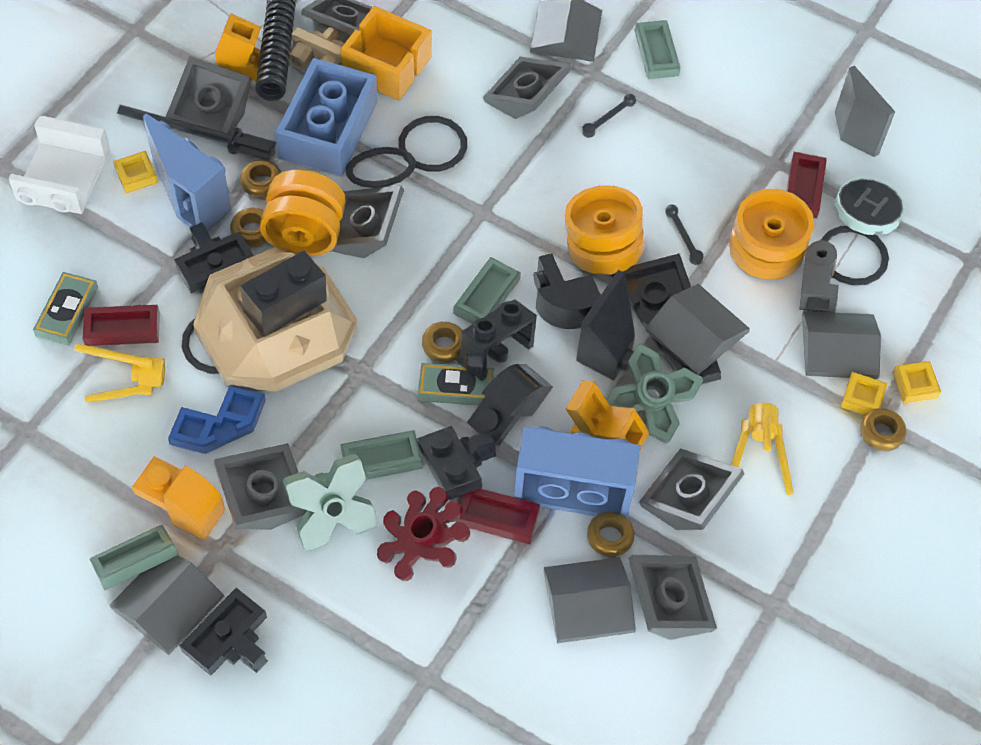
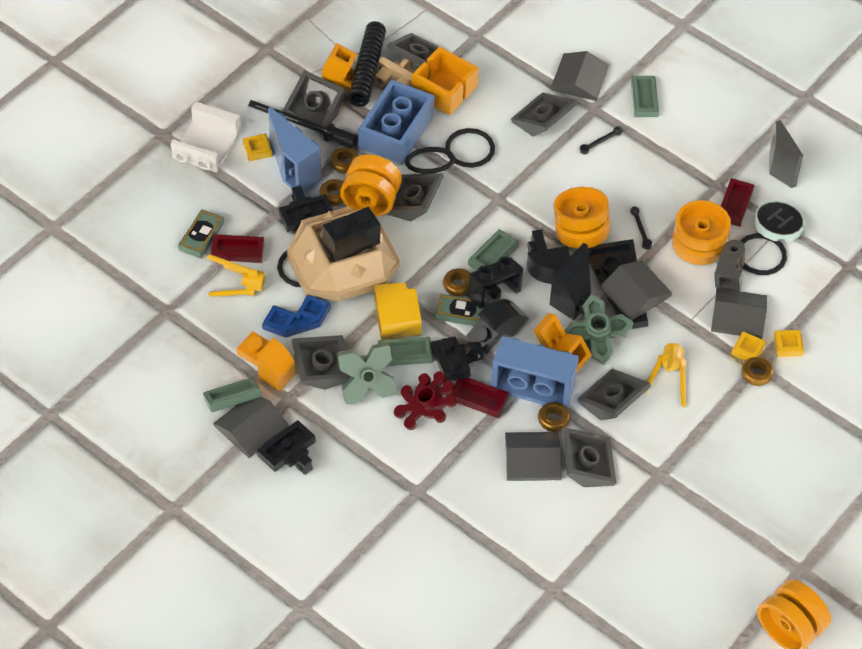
camera: 10 degrees right, 5 degrees down
(363, 397) = (397, 311): none -> yellow piece

